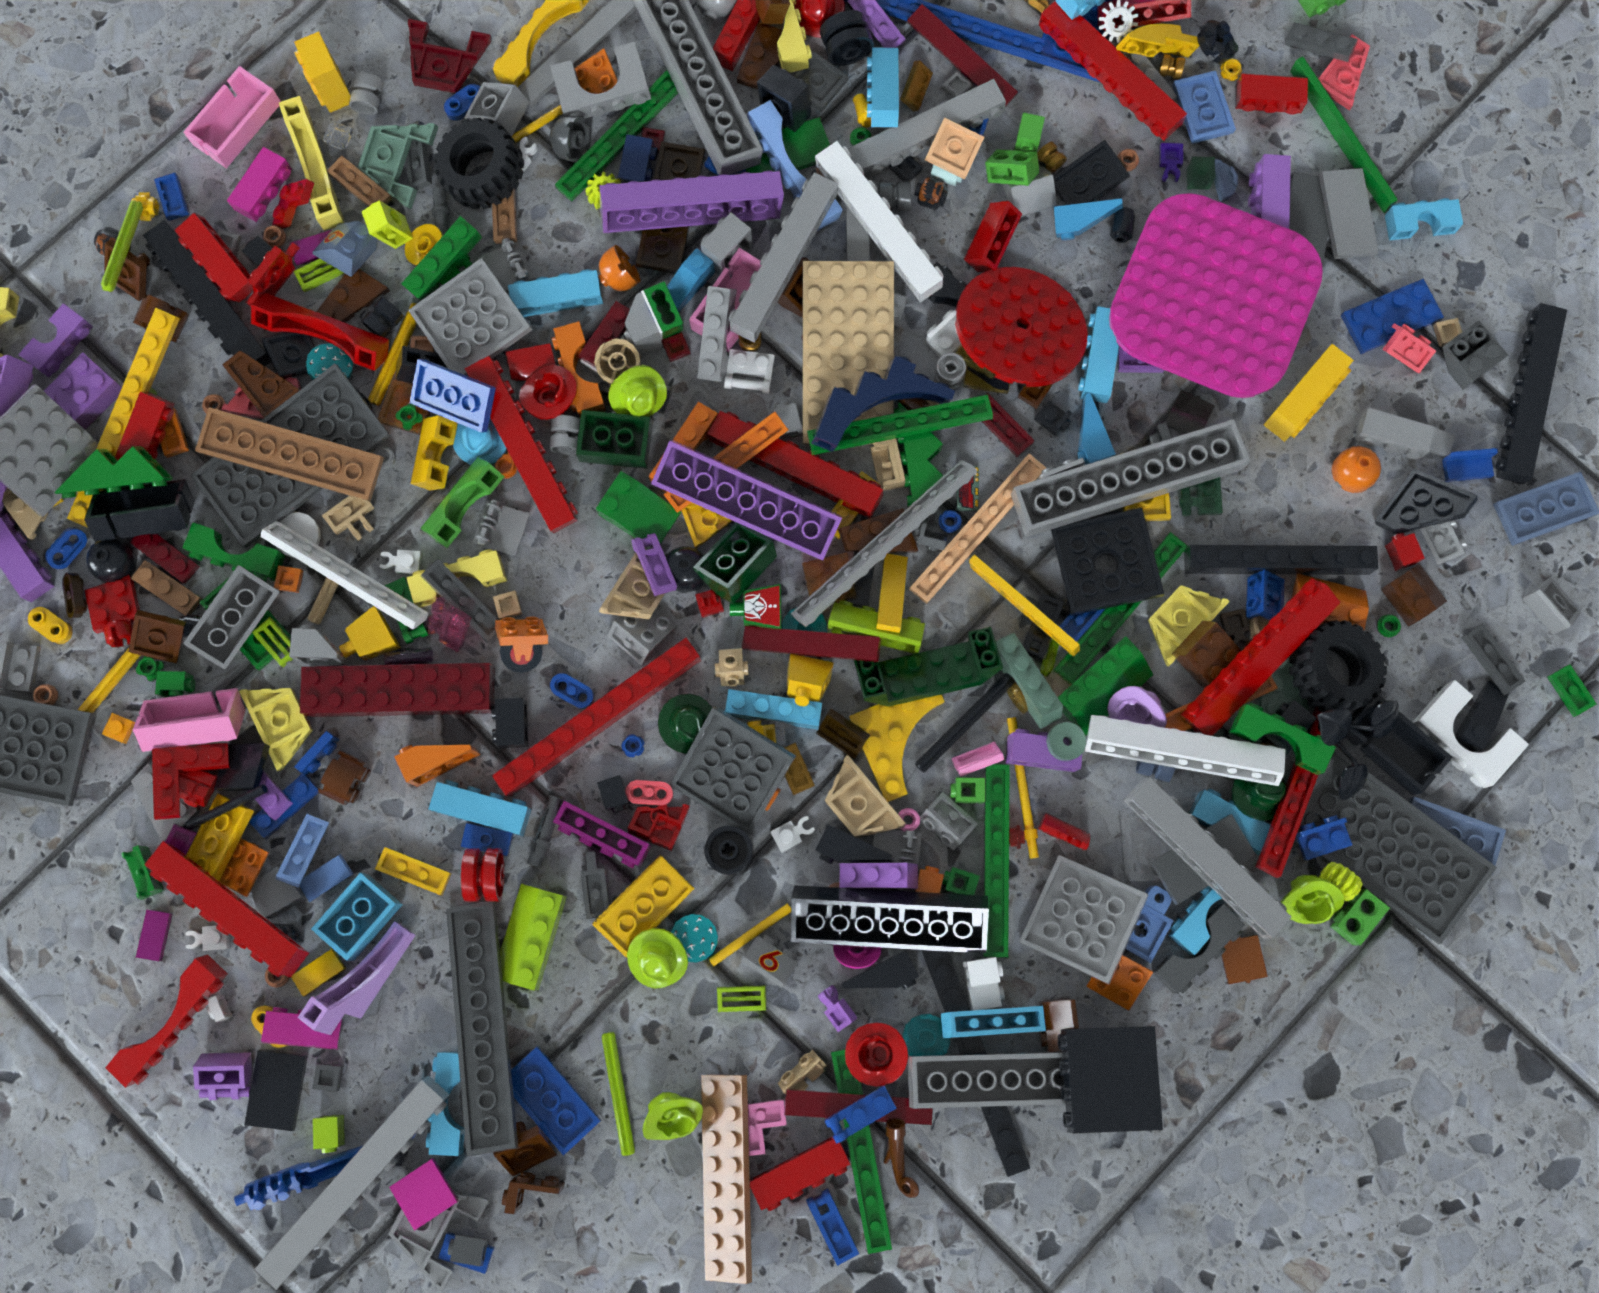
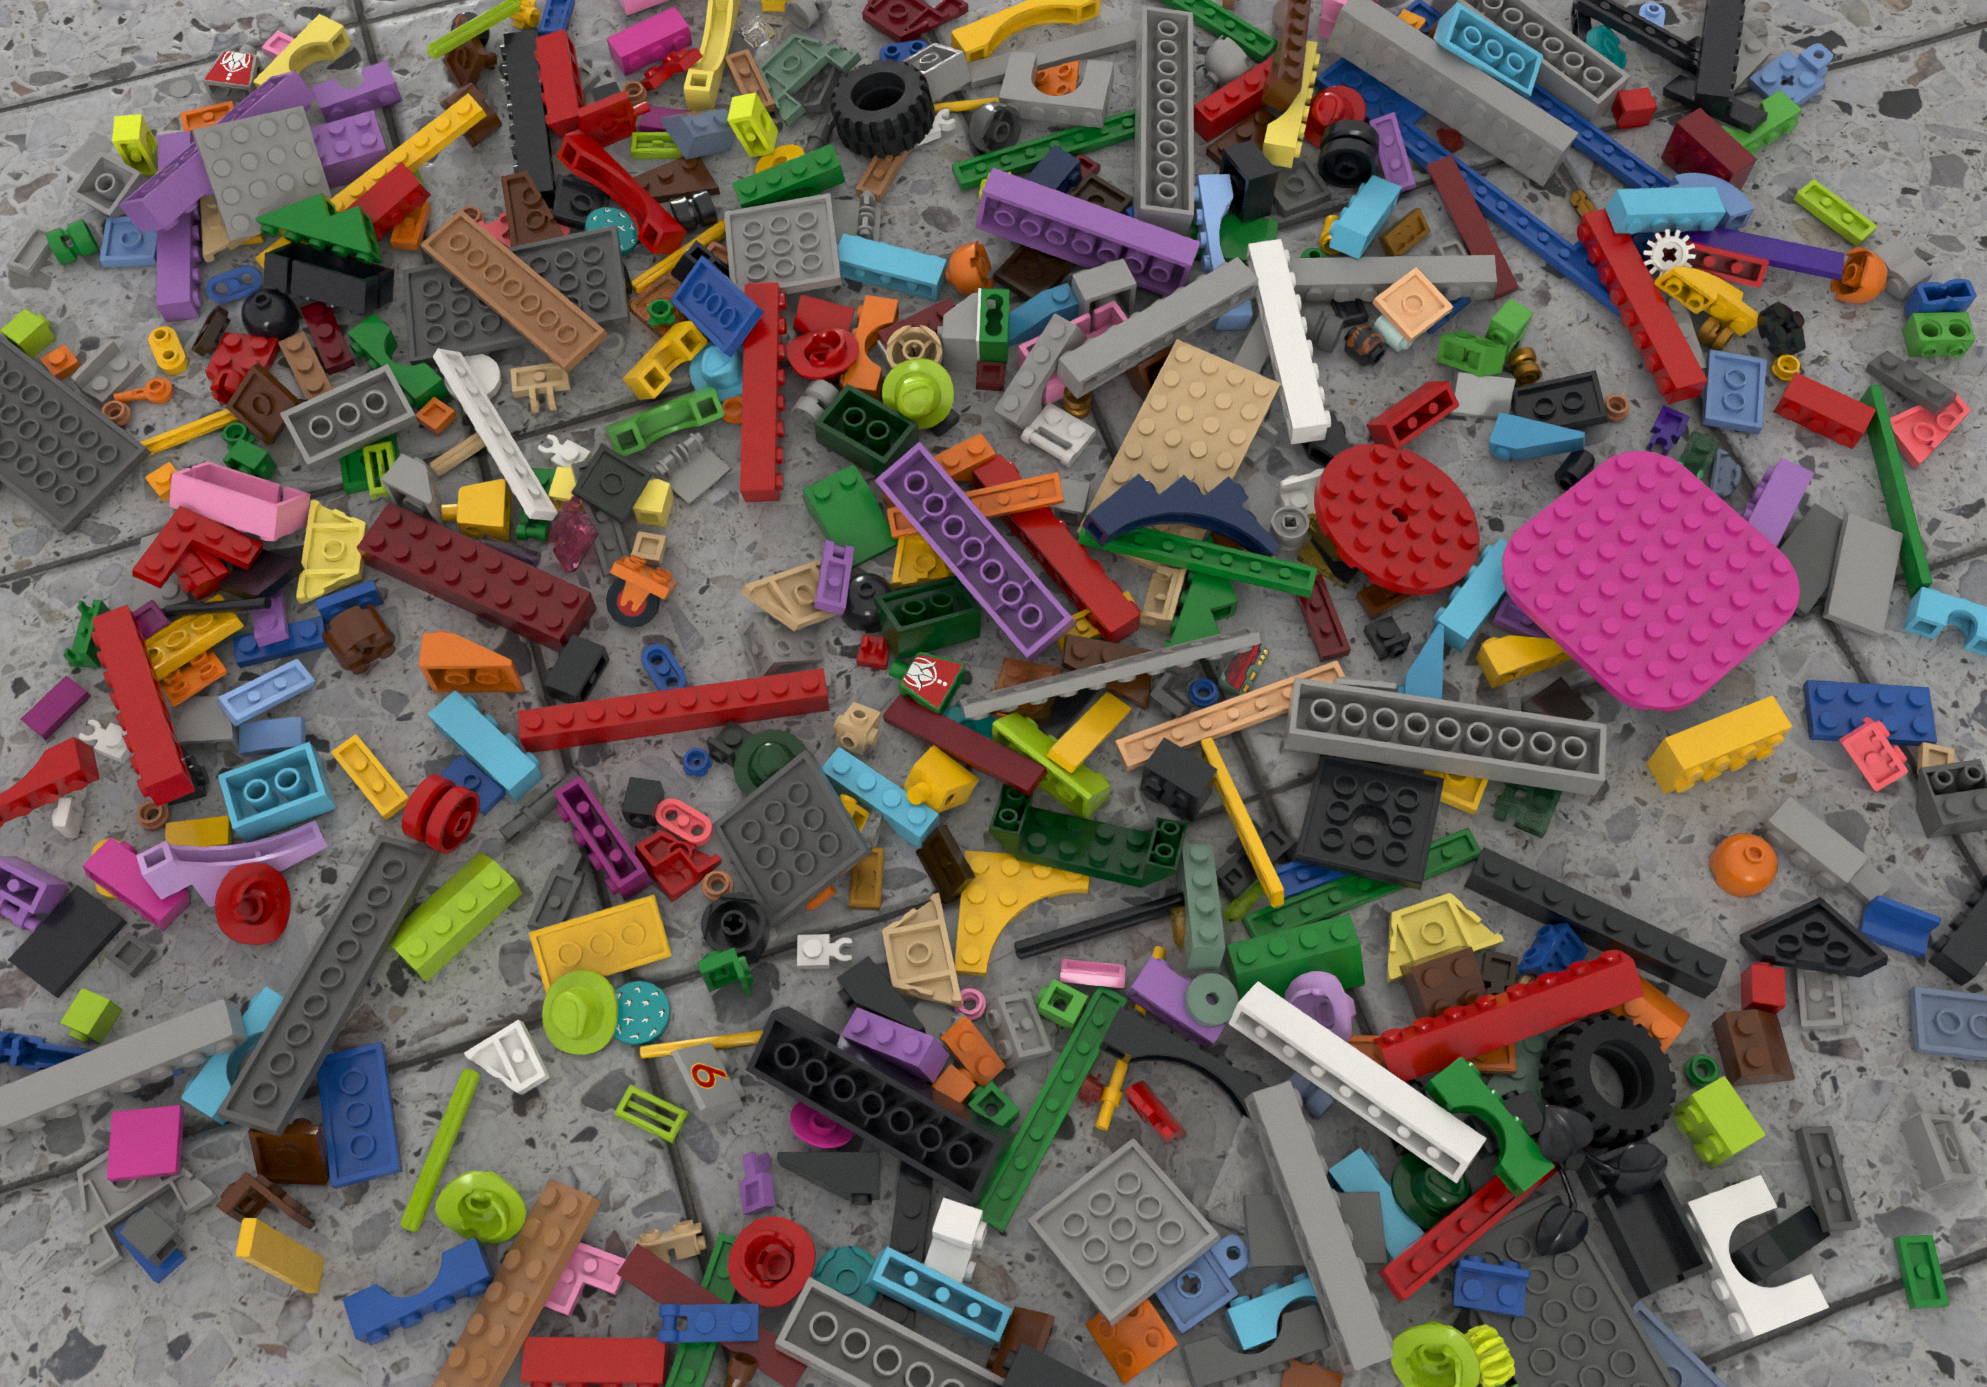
camera: 25 degrees right, 15 degrees down
(62, 661) = (157, 391): none -> orange plate
(393, 1003) = (253, 904): none -> red hat
(457, 574) = (612, 483): none -> pearl dark grey tile
(573, 1226) = (279, 1255): none -> yellow tile
(629, 1011) = (511, 1058): none -> white wing
(643, 1214) = (462, 1273): none -> blue arch
(647, 721) = (727, 743): none -> pearl dark grey bracket
(689, 825) = (713, 878): none -> nougat plate
(734, 883) = (725, 968): none -> green bracket
(929, 852) = (972, 1051): none -> orange plate
(967, 597) = (1177, 780): none -> black brick
(1031, 791) = (1138, 1040): none -> black arch
(1145, 391) = (1517, 657): none -> yellow slope
(1415, 659) = (1717, 1122): none -> lime brick

